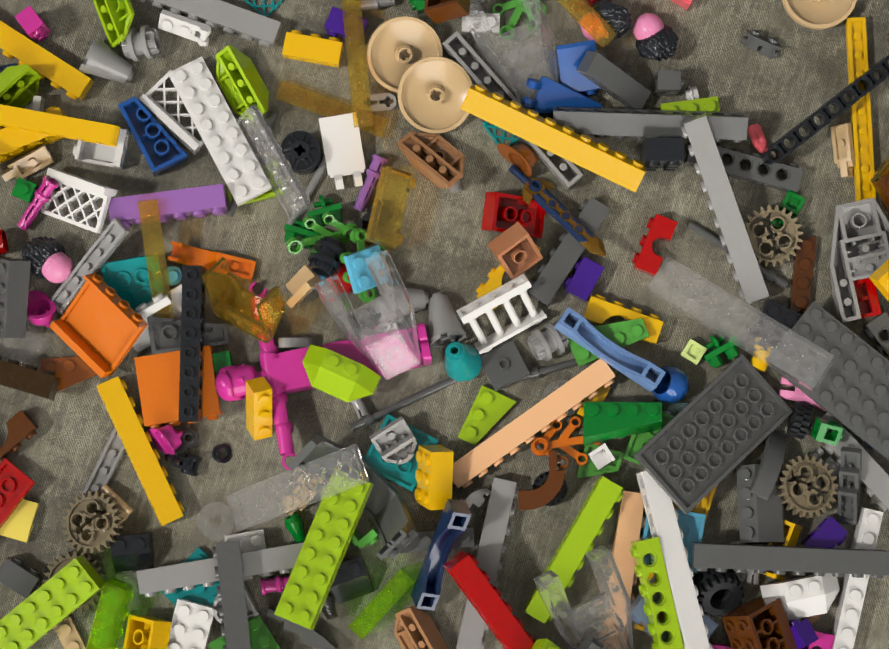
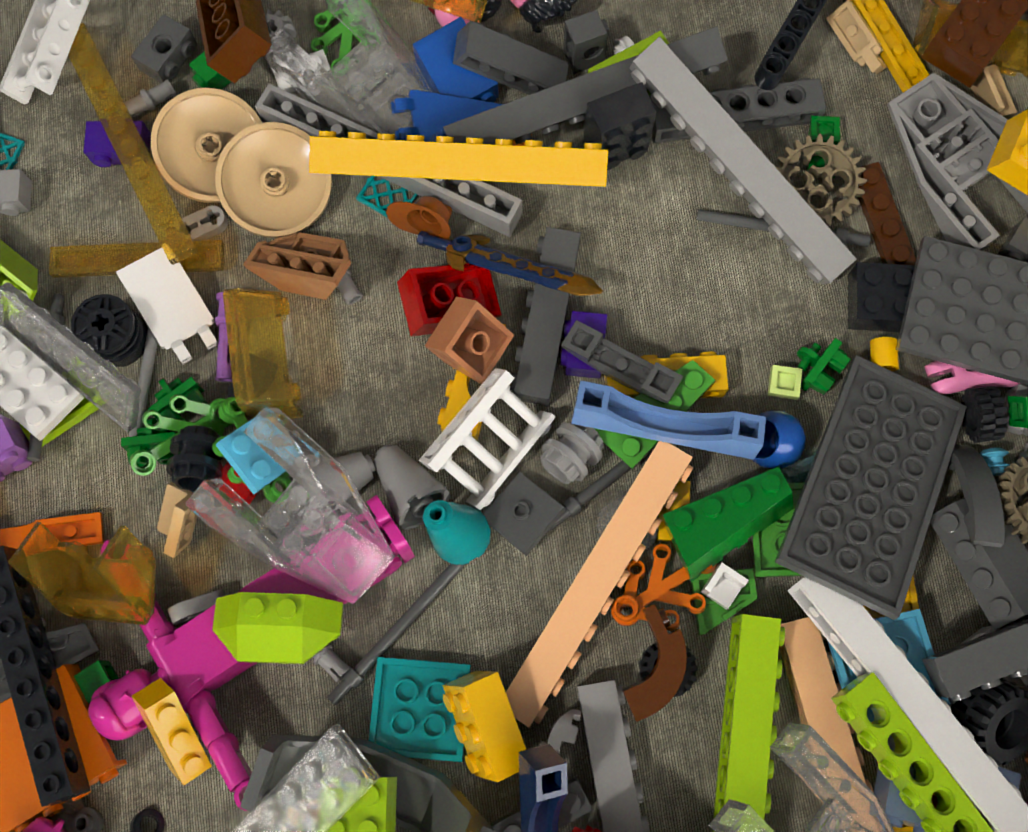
camera: 20 degrees left, 10 degrees down
(312, 48) = (81, 190): yellow brick -> none
(395, 442) = (404, 696): light grey slope -> none
(484, 414) = (523, 596): lime wing -> none
(598, 302) = (621, 365): none -> dark grey slope
(646, 259) = (662, 283): red arch -> none
(741, 324) = (845, 307): clear brick -> none
(757, 137) = (738, 70): coral piece -> none
(793, 449) = (995, 459): none -> medium azure wheel
(867, 298) = (993, 208): red hinge -> none

